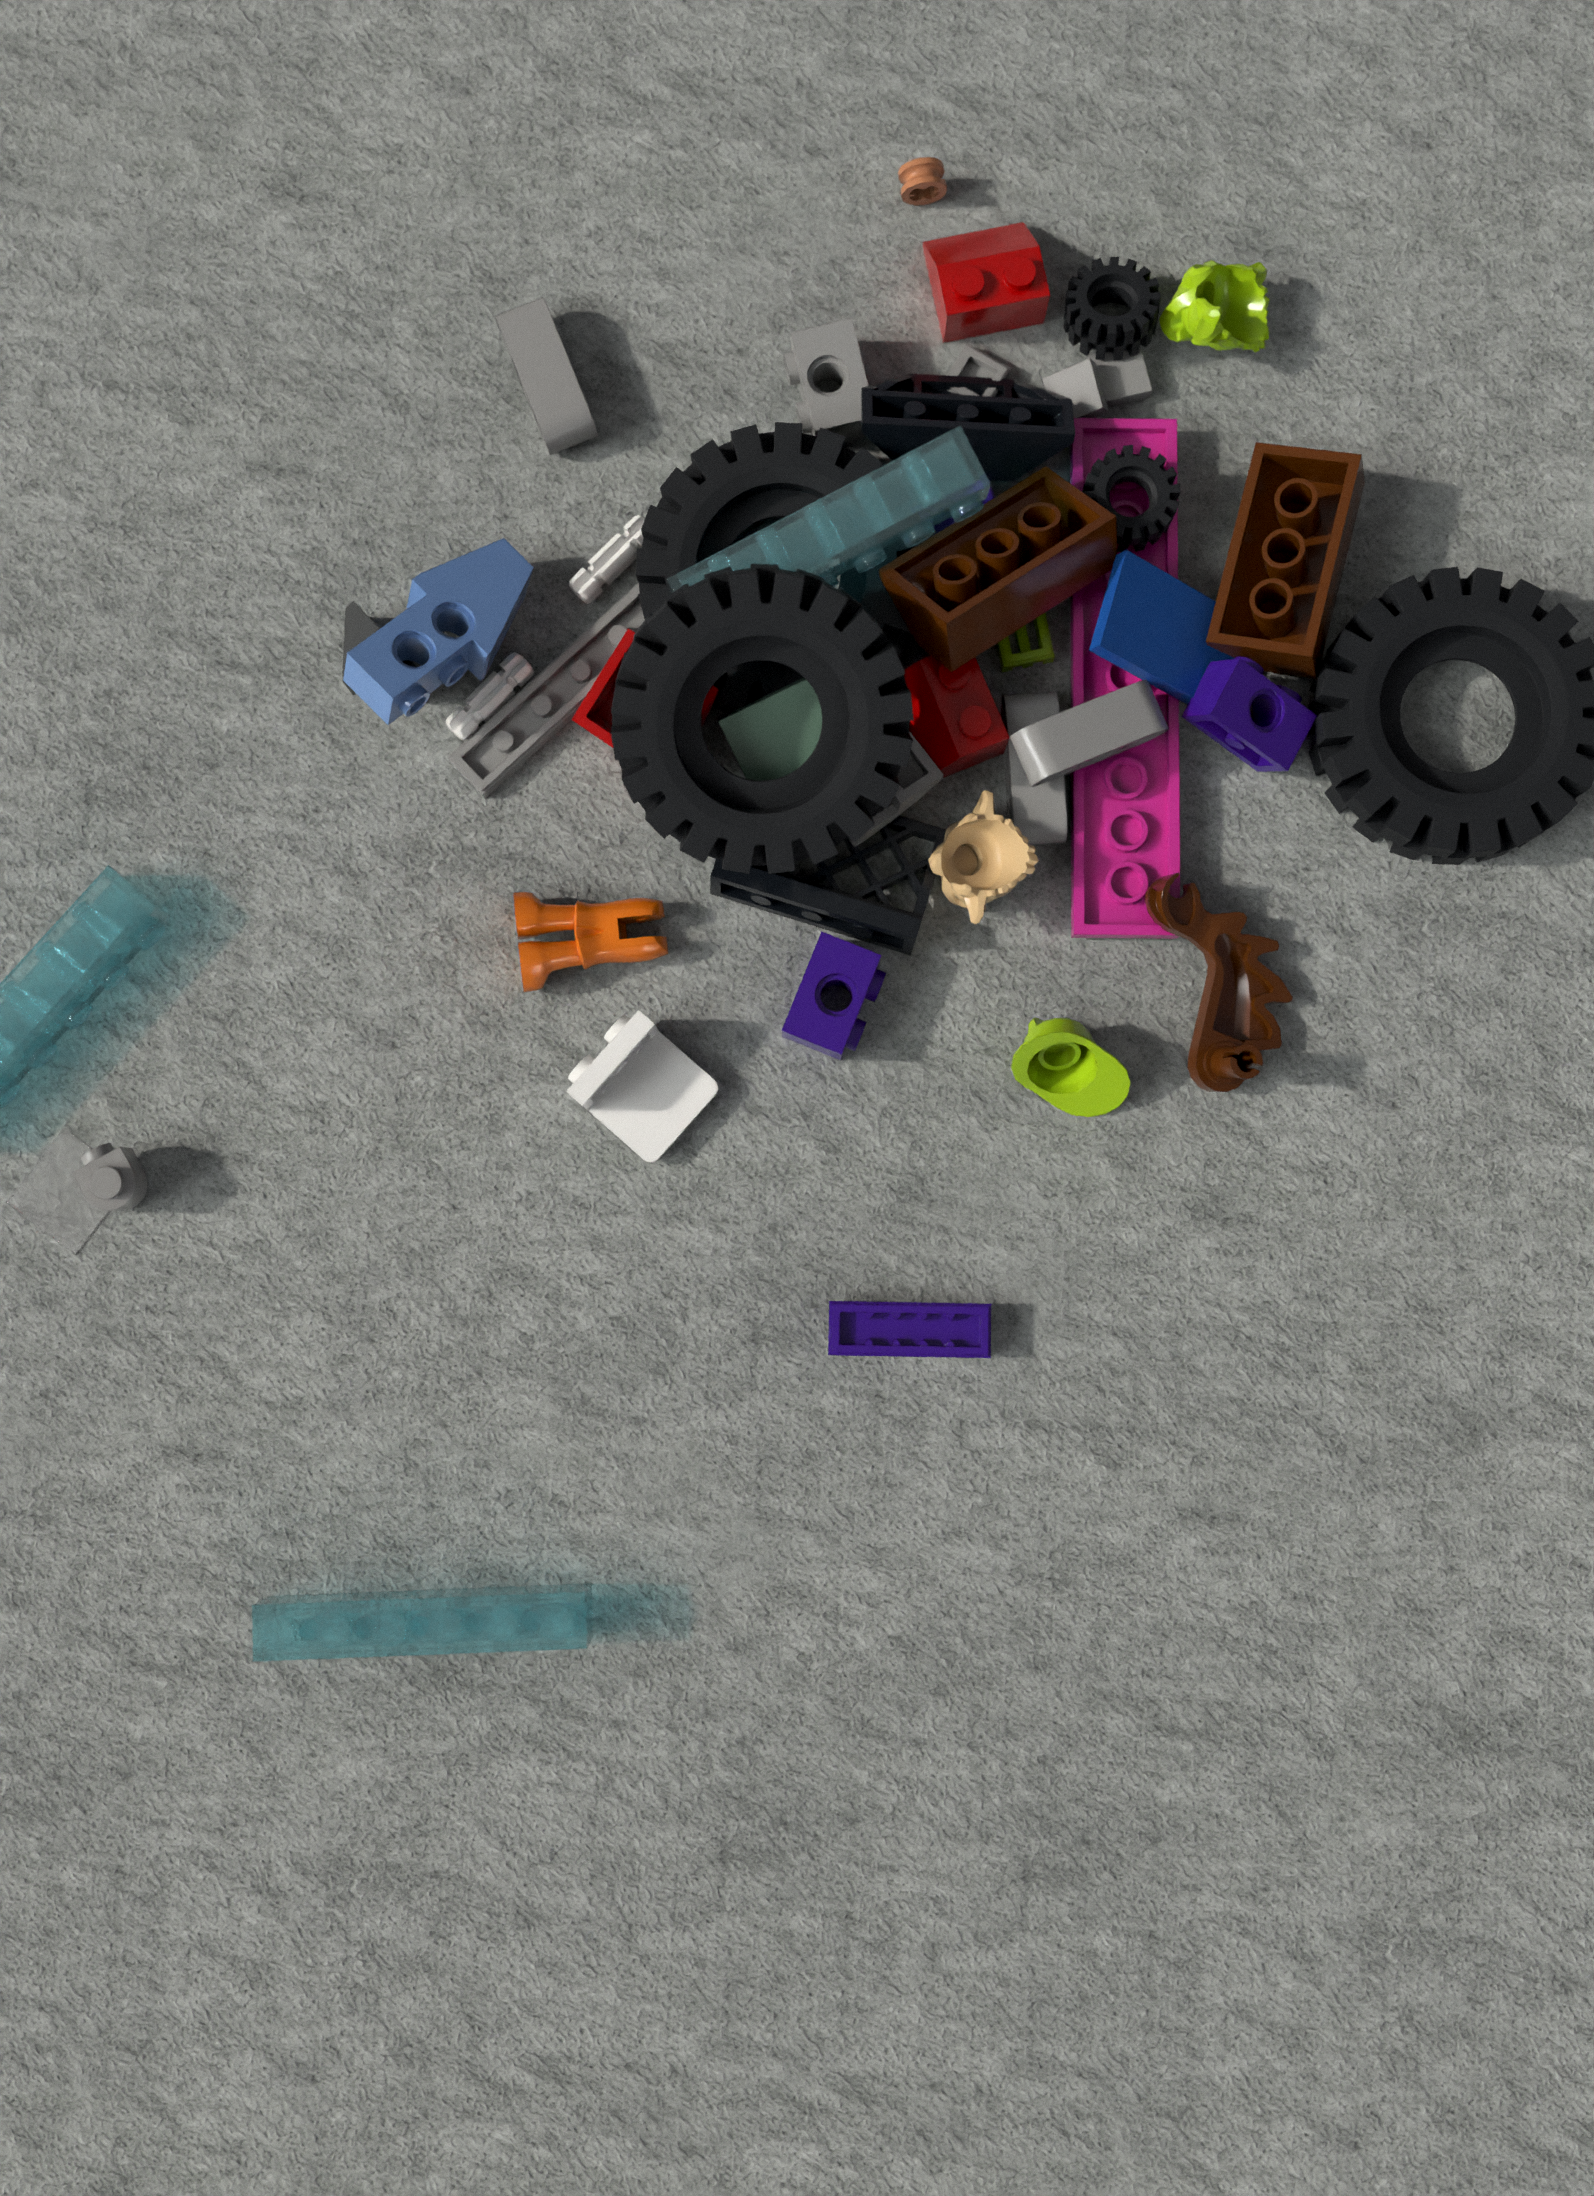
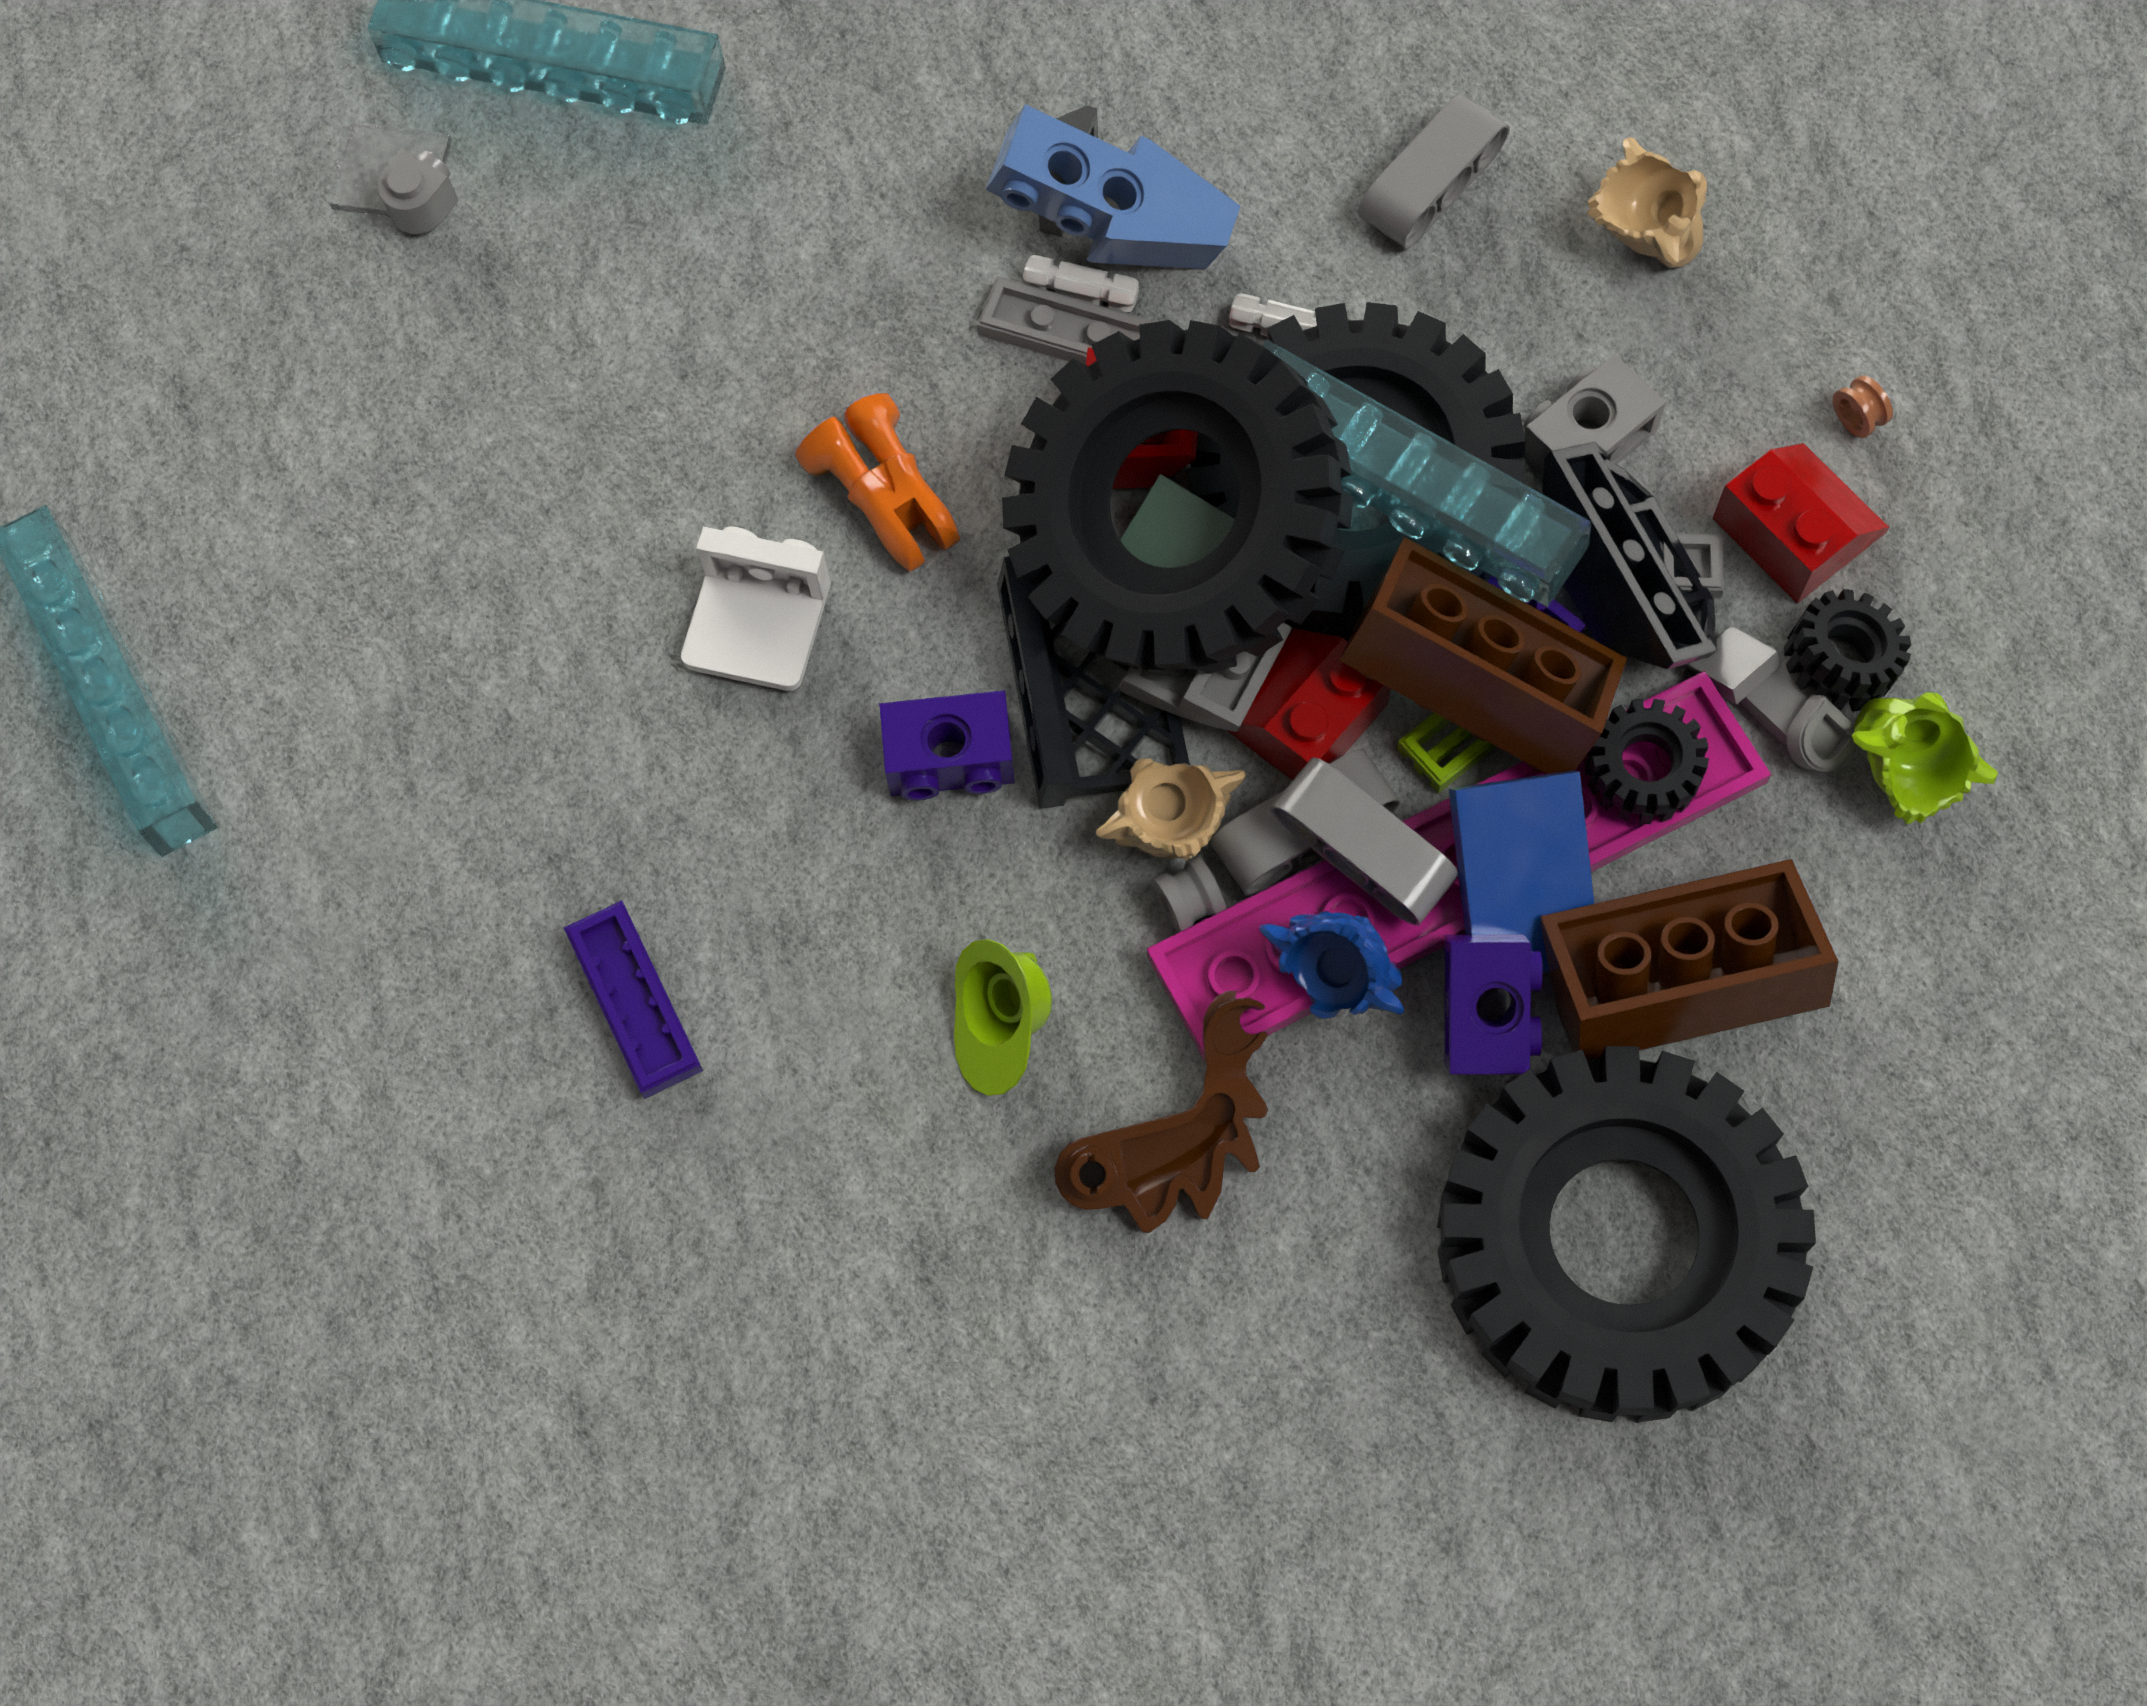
camera: 65 degrees right, 15 degrees down
(676, 231) = (1652, 206): none -> tan hair
(1048, 884) = (1188, 894): none -> light grey wheel
(1163, 367) = (1820, 736): none -> light grey tile
(1174, 802) = (1337, 962): none -> blue hair

